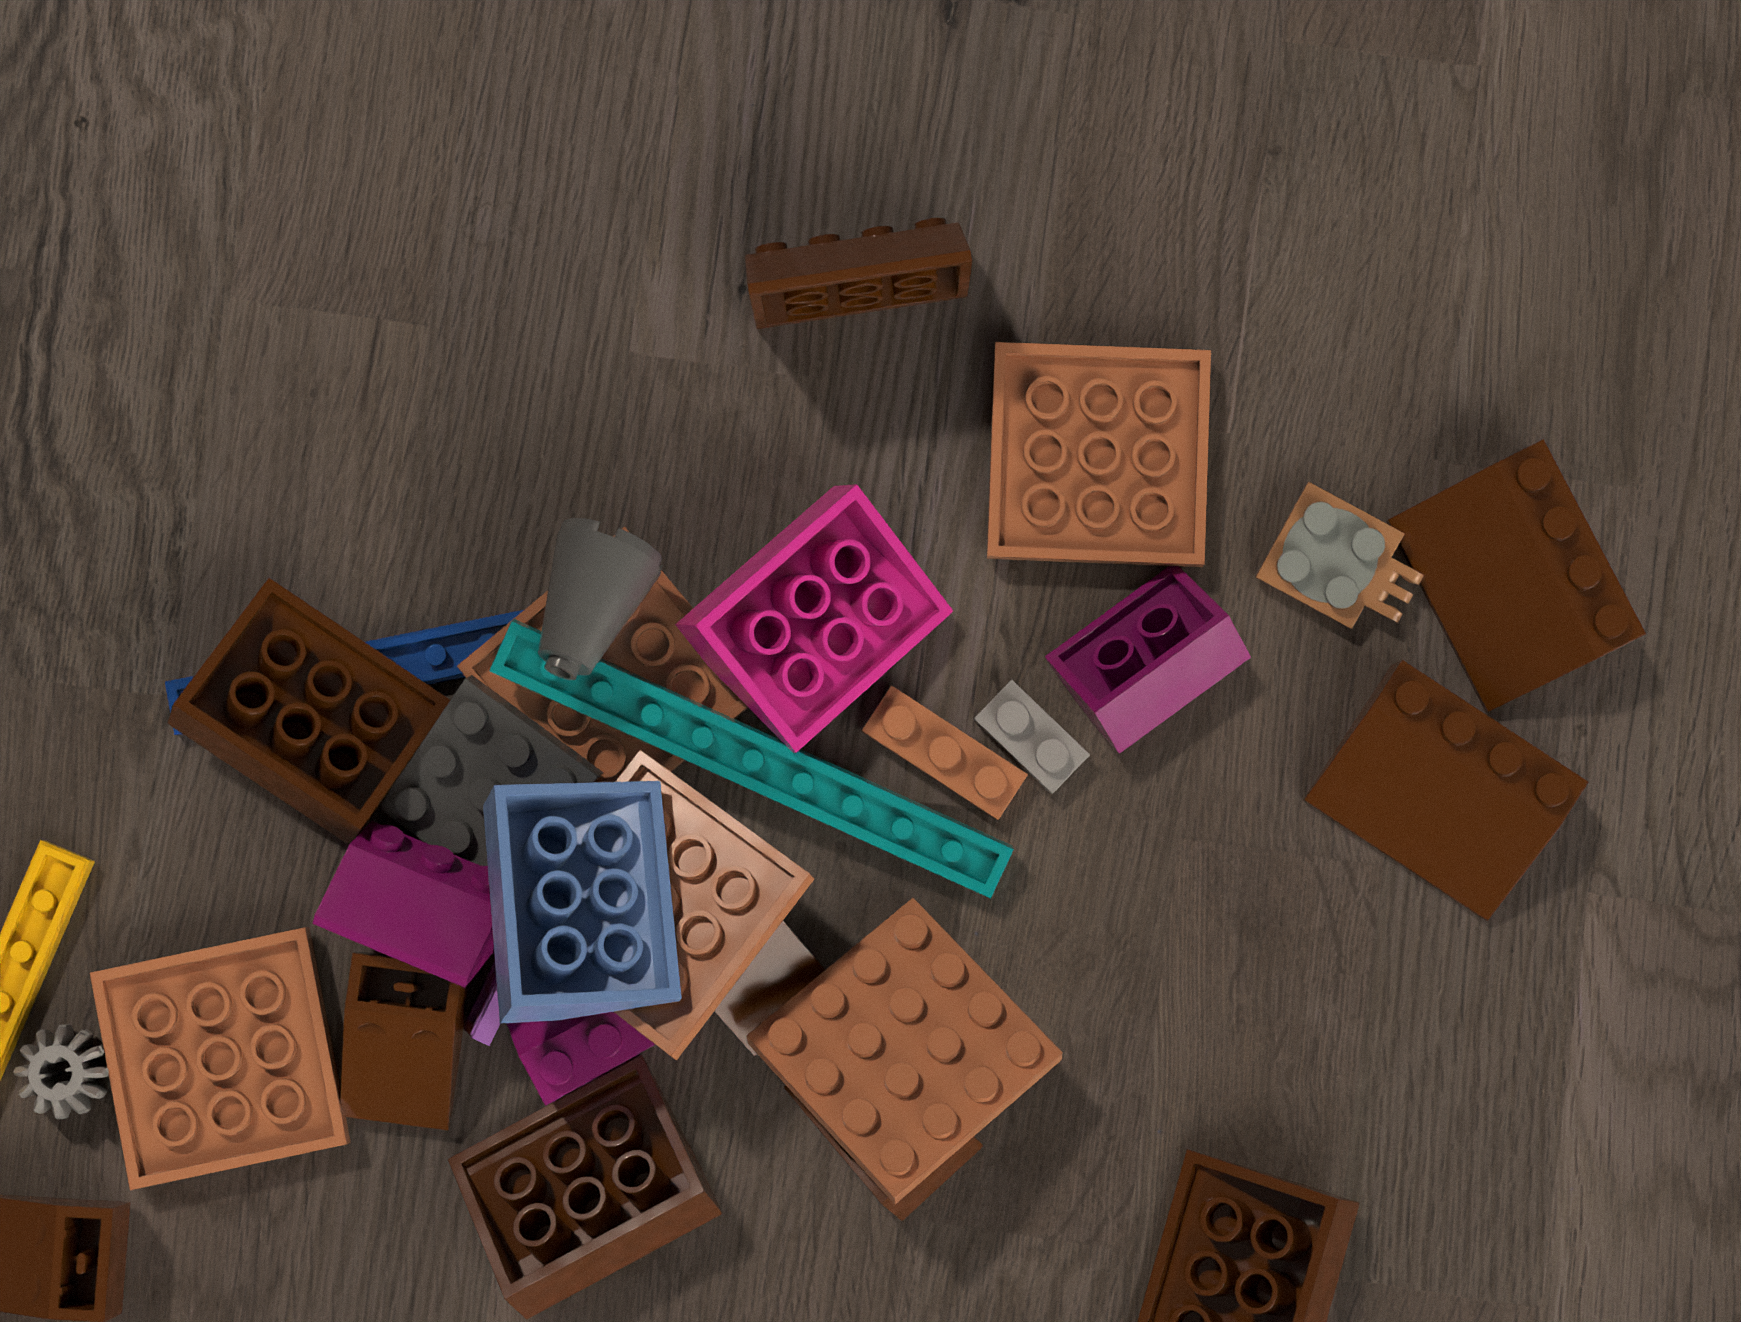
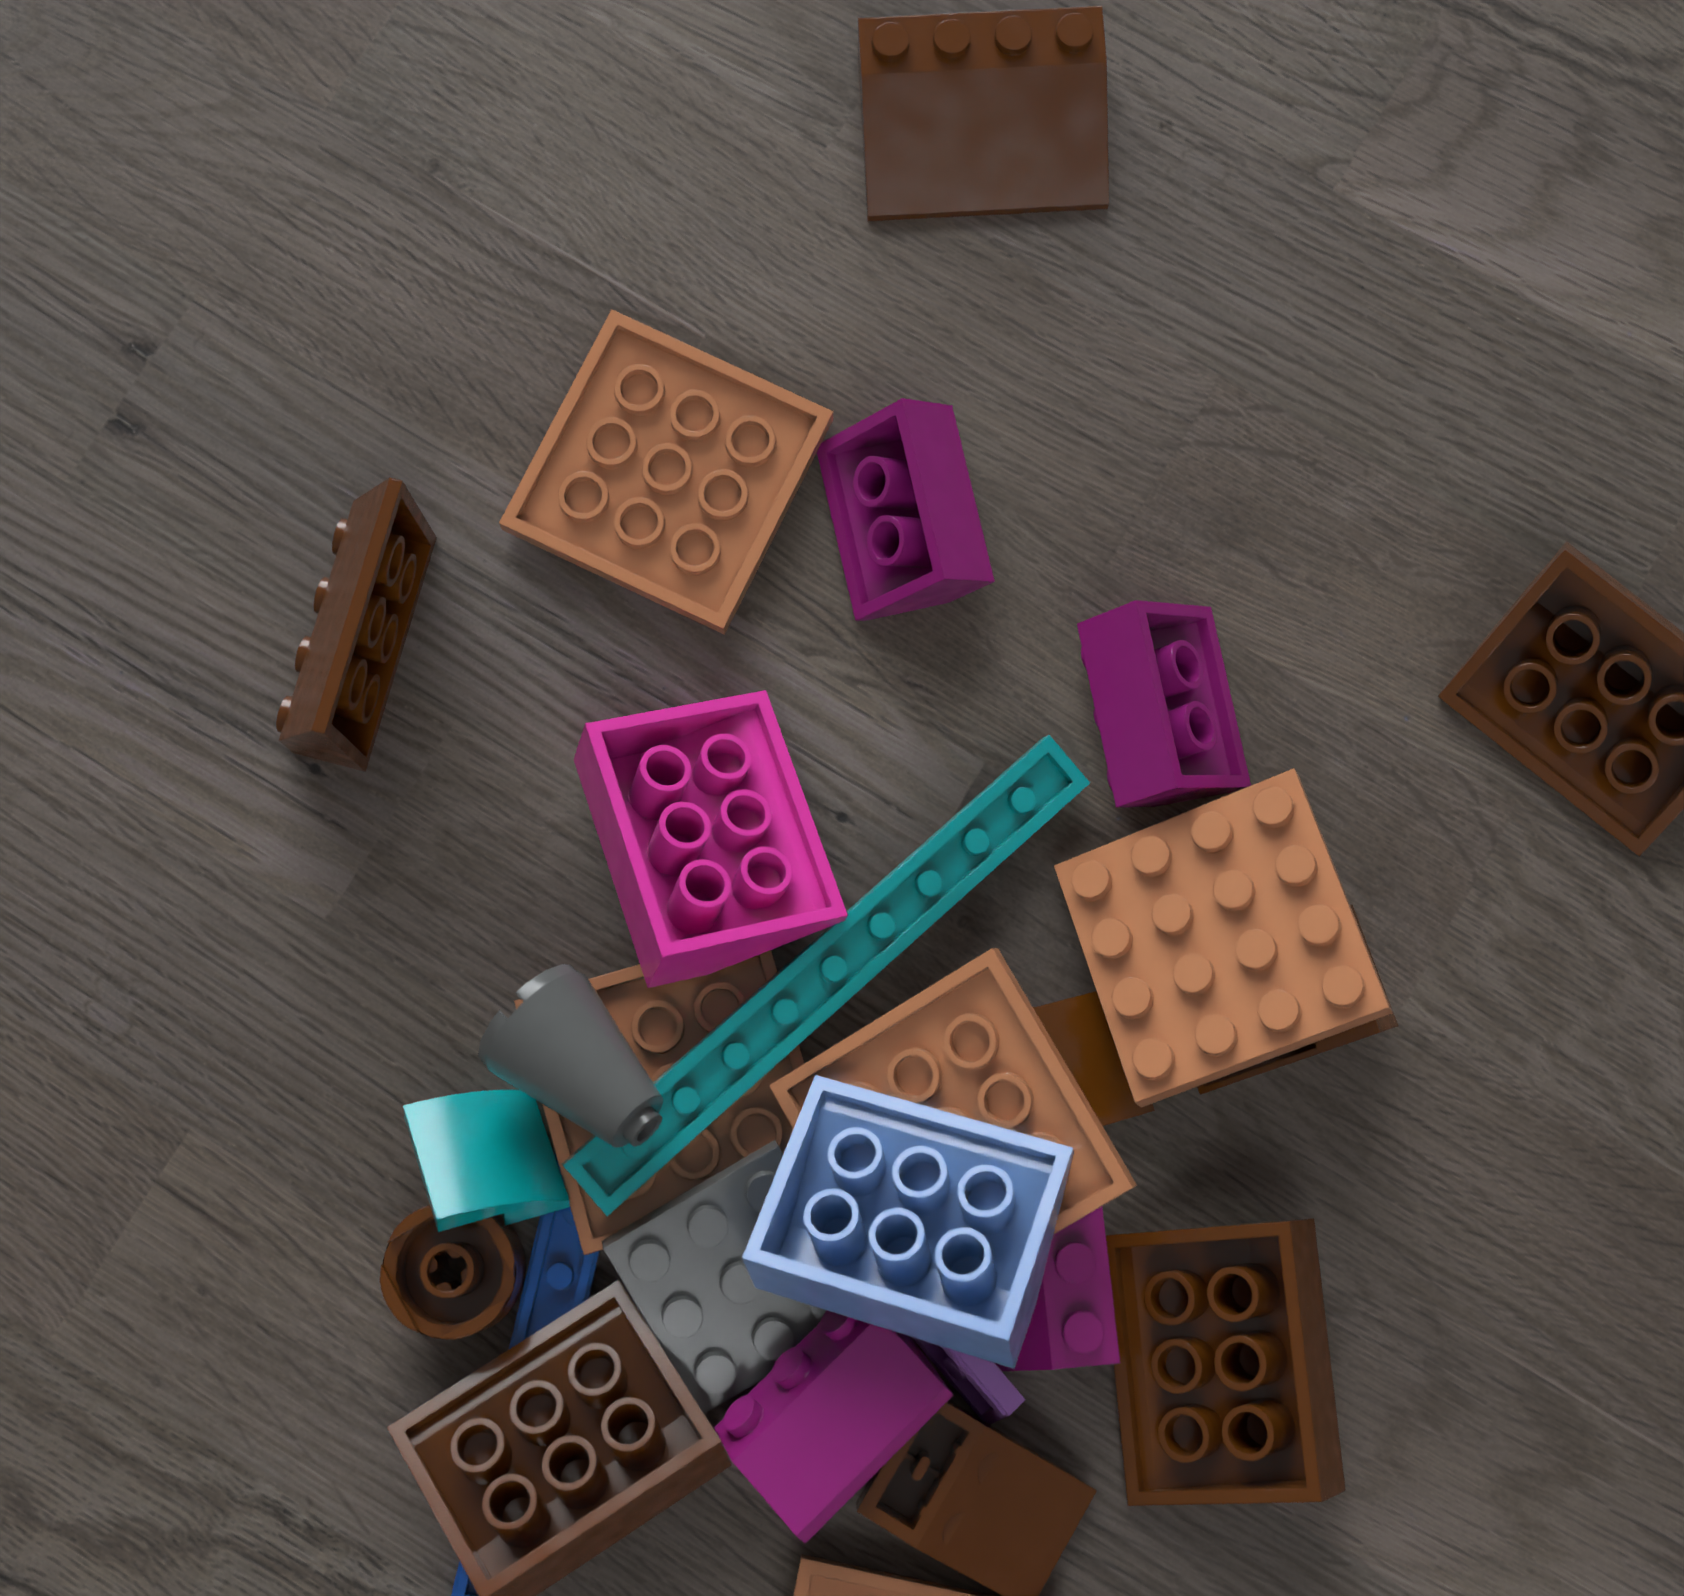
camera: 70 degrees left, 5 degrees down
(376, 587) = (443, 1309): none -> reddish brown brick
(495, 559) = (484, 1157): none -> teal slope
(944, 753) = (912, 767): nougat plate -> none
(1031, 737) = (935, 669): light grey plate -> none
(1080, 930) = (1162, 704): none -> magenta slope
(1337, 559) = (886, 281): piece -> none
(1445, 790) = (1171, 275): reddish brown slope -> none

